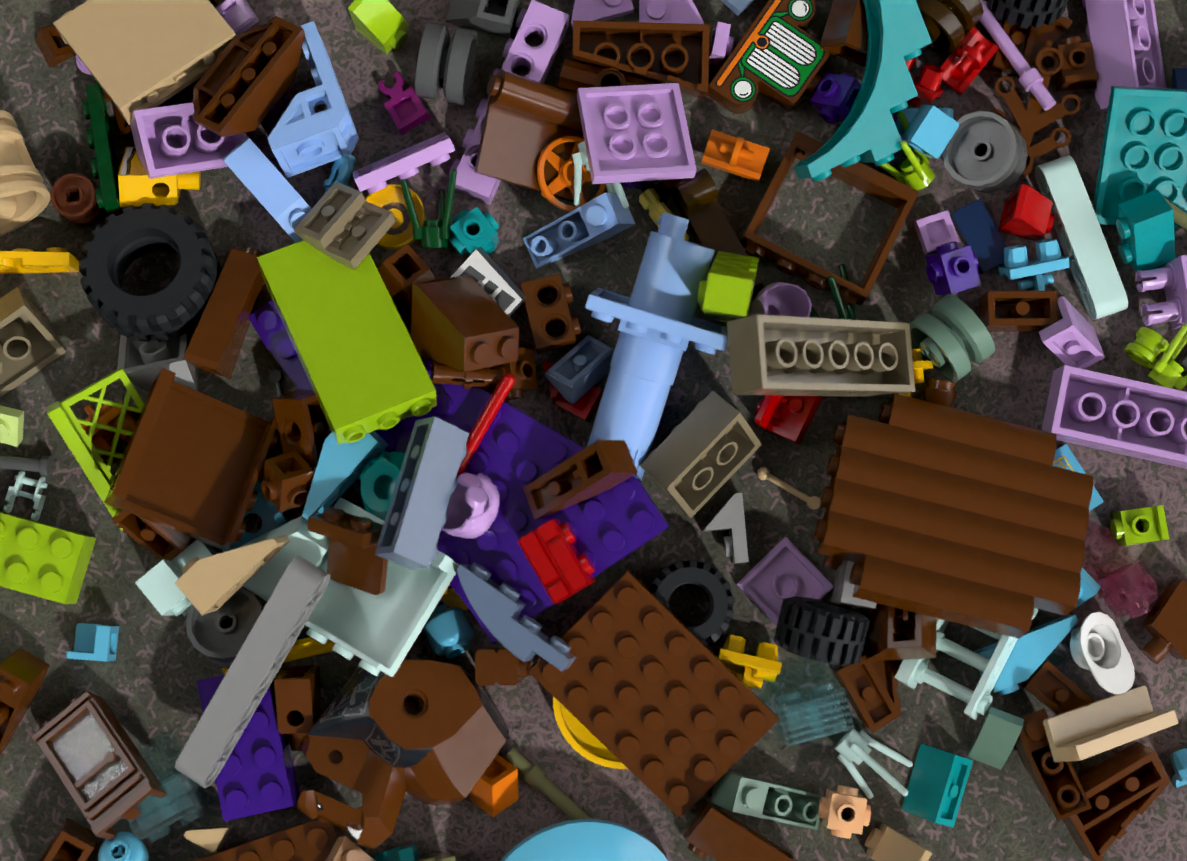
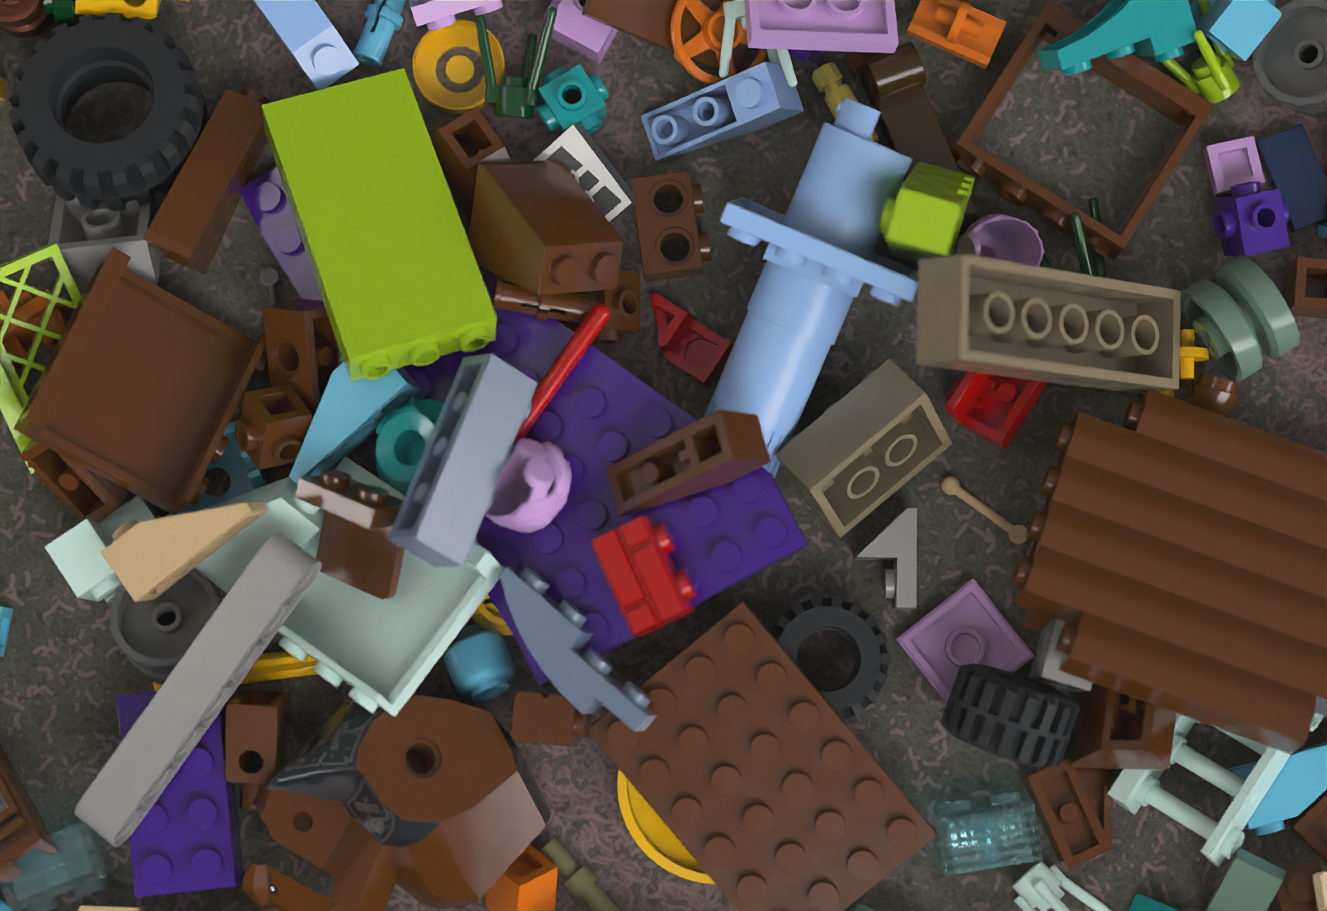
camera: 10 degrees right, 0 degrees up
(345, 225) = (390, 71): dark tan slope -> none
(581, 368) = (705, 309): sand blue slope -> none
(750, 668) = (902, 759): yellow hips -> none

